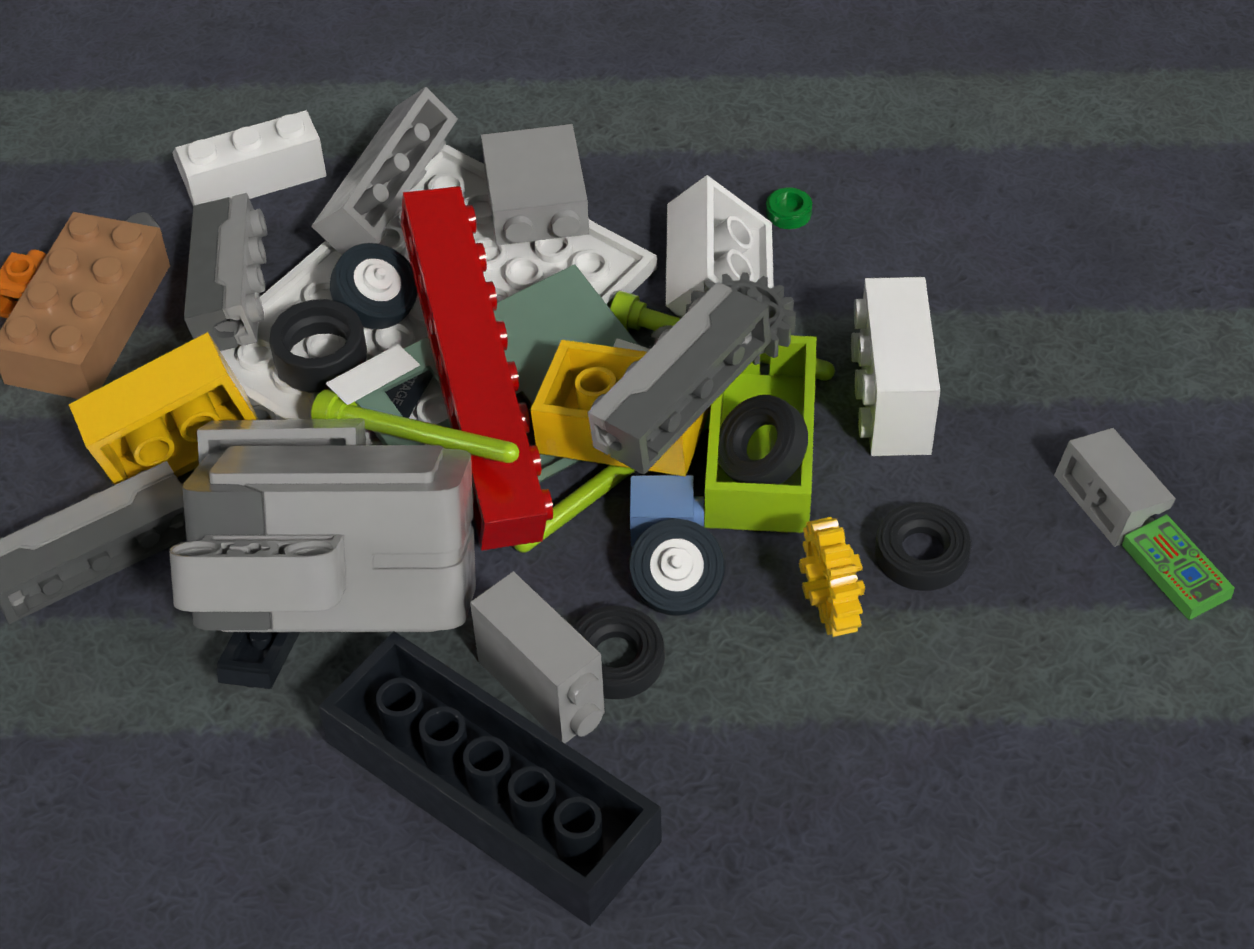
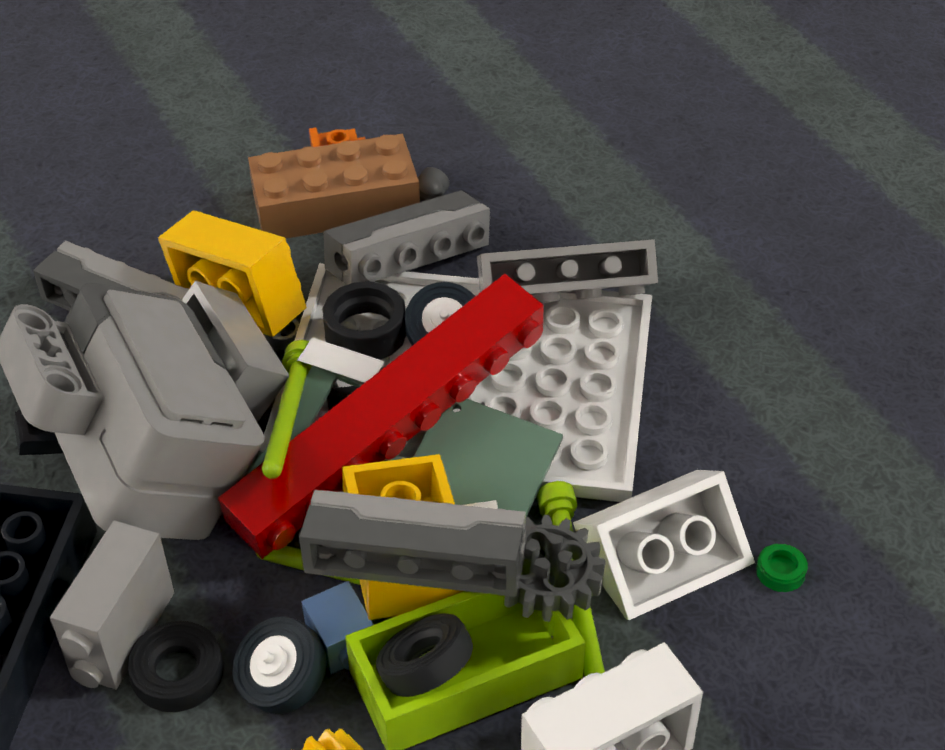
camera: 60 degrees right, 5 degrees down
(252, 159) = (544, 202): white slope -> none
(535, 184) = (634, 367): light grey brick -> none

